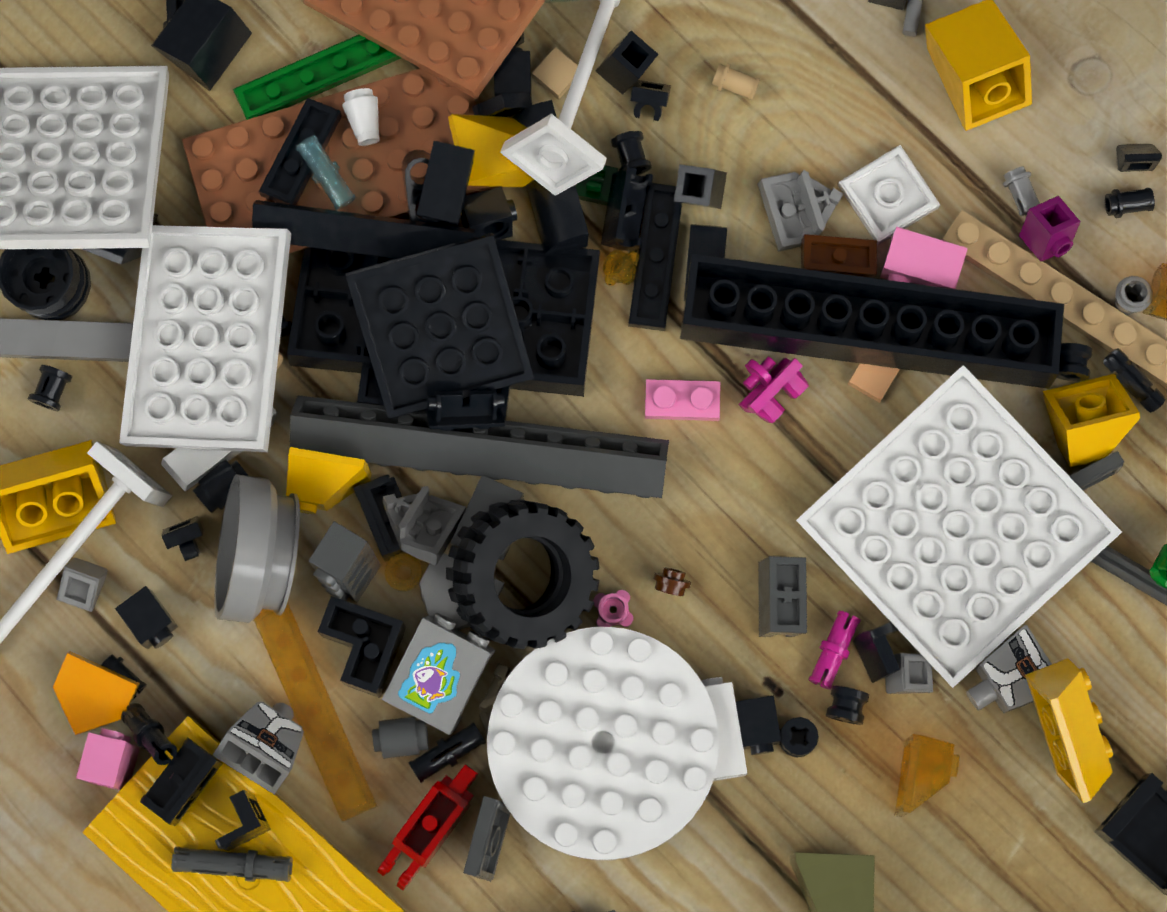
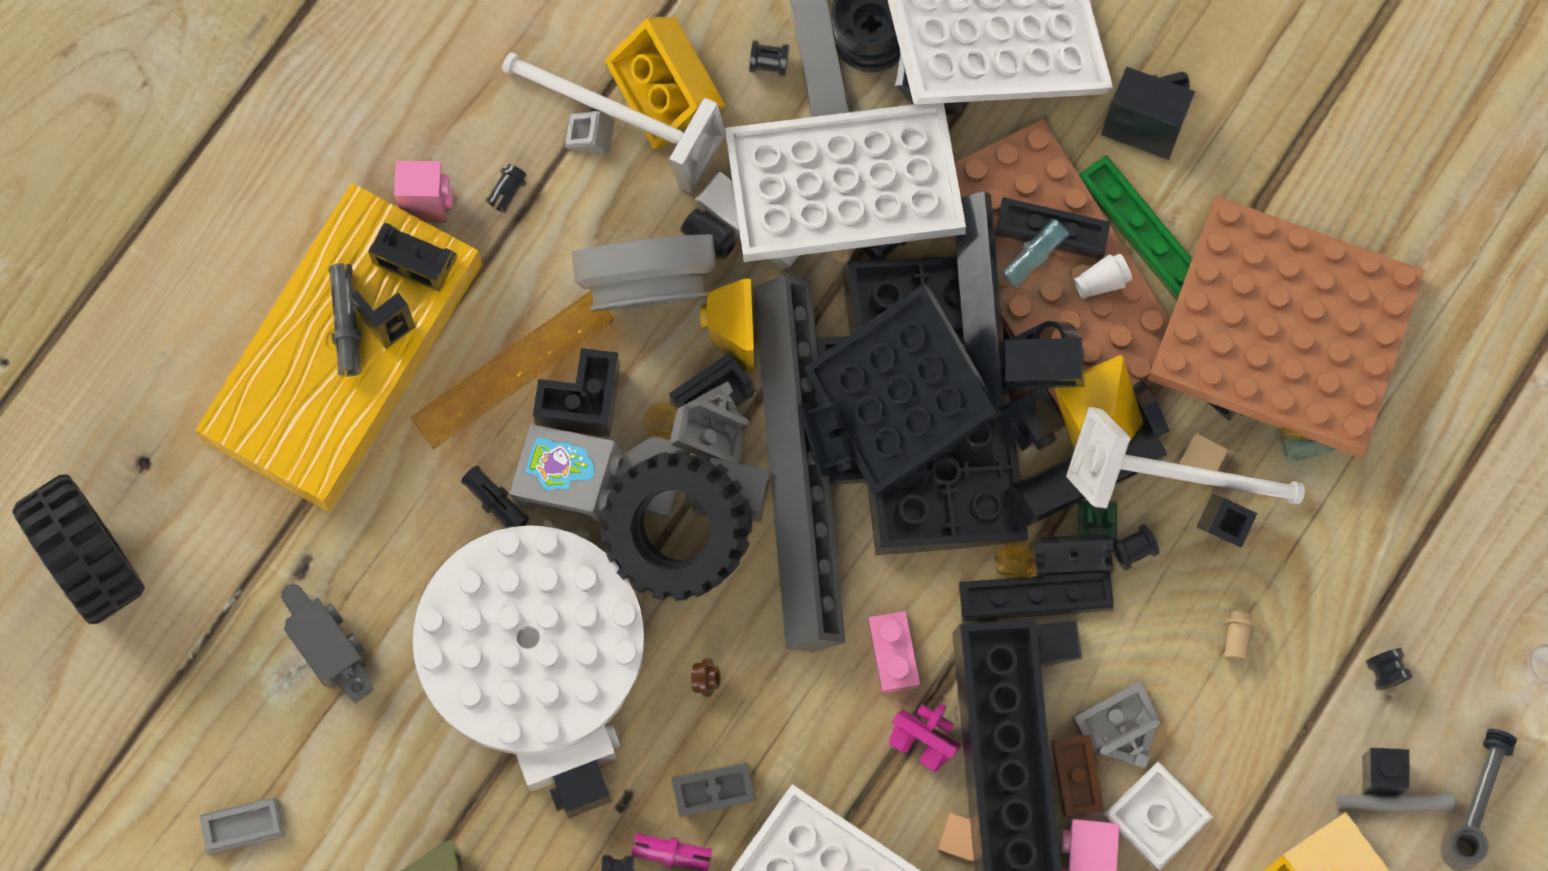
camera: 75 degrees right, 5 degrees down
(92, 693) = (485, 163): light orange slope -> none
(147, 618) = (566, 196): black brick -> none
(149, 734) = (453, 219): black pin -> none
(184, 536) = (652, 212): black tile -> none
(262, 744) = (465, 323): light grey torso -> none
(344, 563) = (647, 353): dark grey brick -> none
(400, 737) = (499, 452): dark grey brick -> none
(430, 824) = (421, 497): red hinge -> none
(487, 839) = (412, 550): dark grey tile -> none
(514, 73) = (1186, 416): black brick -> none
(618, 600) = (672, 618): bright pink plate -> none
(650, 94) = (1202, 553): black tile -> none
(700, 186) = (1114, 620): black brick -> none
(794, 741) = (581, 837): black wheel -> none

